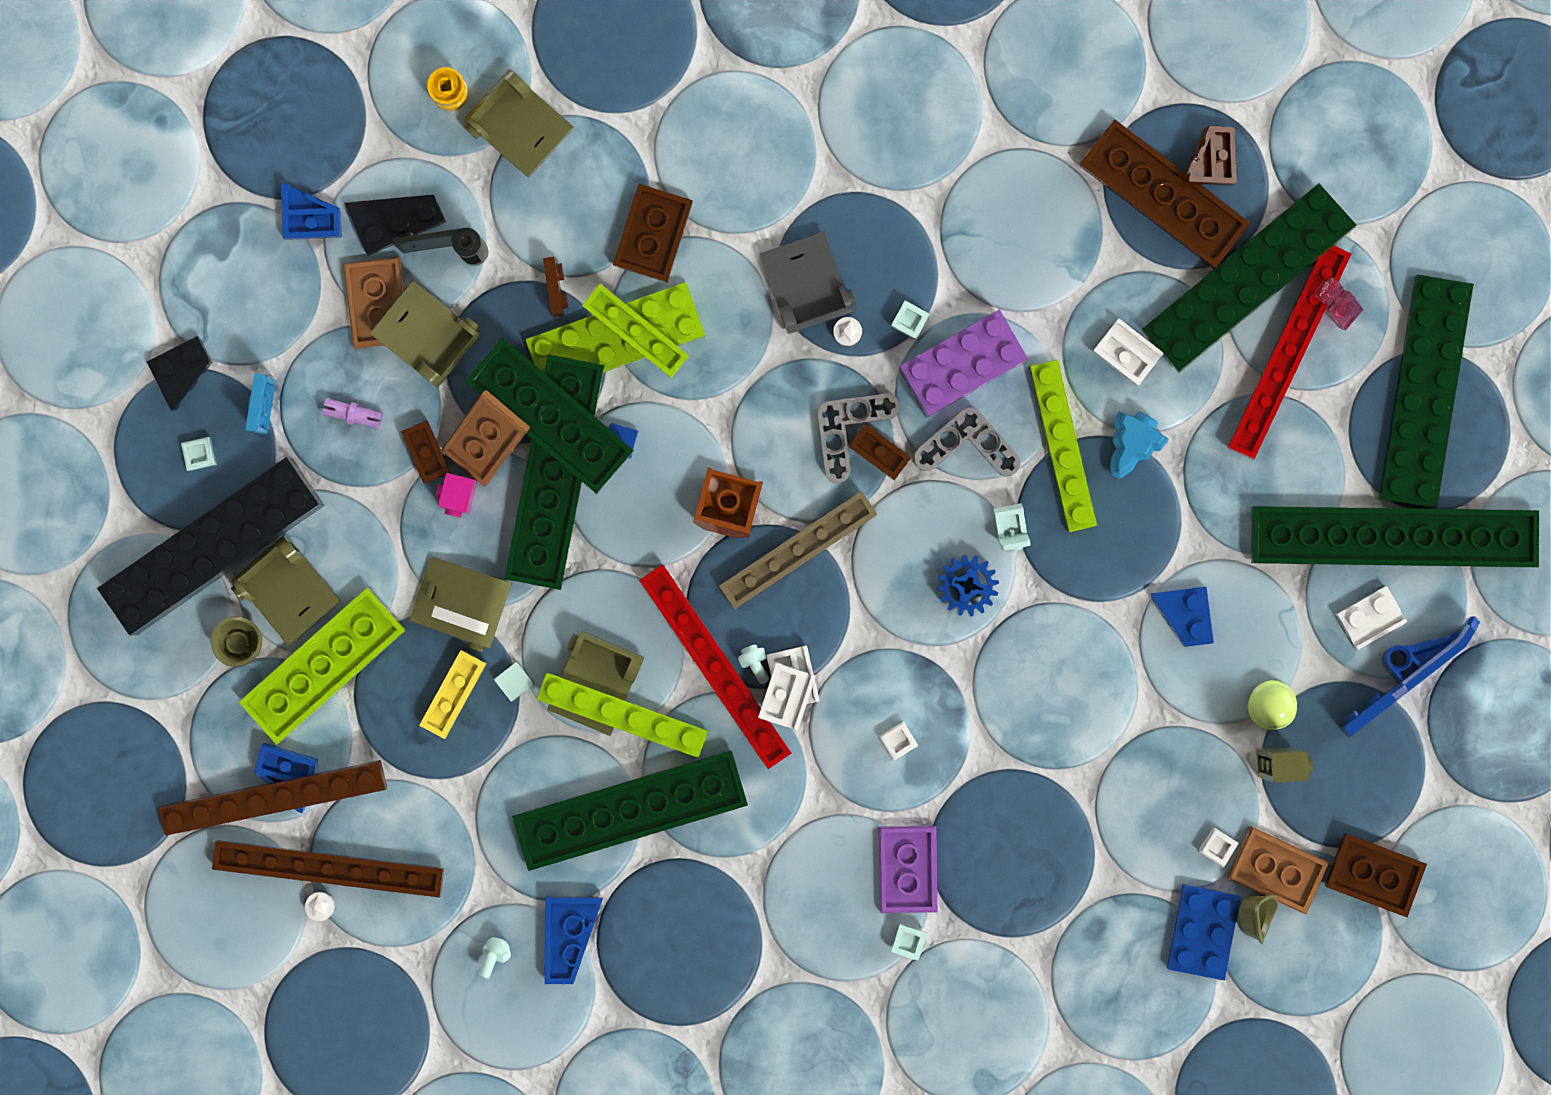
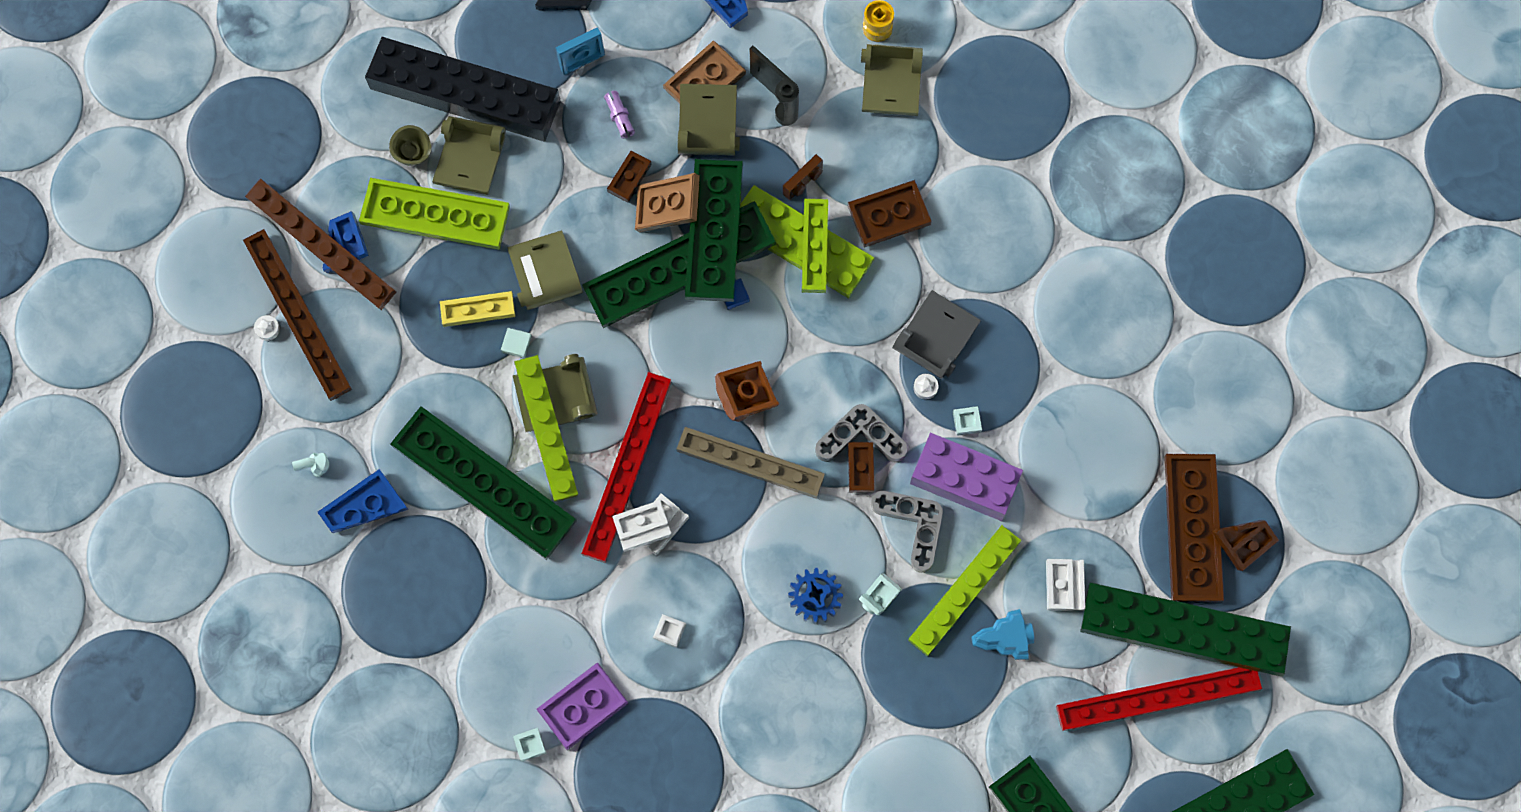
camera: 55 degrees right, 15 degrees down
(198, 454) = (519, 42): light aqua tile -> none
(393, 218) = (769, 44): black wing -> none
(456, 494) = (615, 215): dark pink brick -> none
(752, 657) = (652, 485): light aqua plate -> none
(1187, 614) = (916, 768): blue wing -> none
(1343, 305) = (1220, 711): clear pink plate -> none

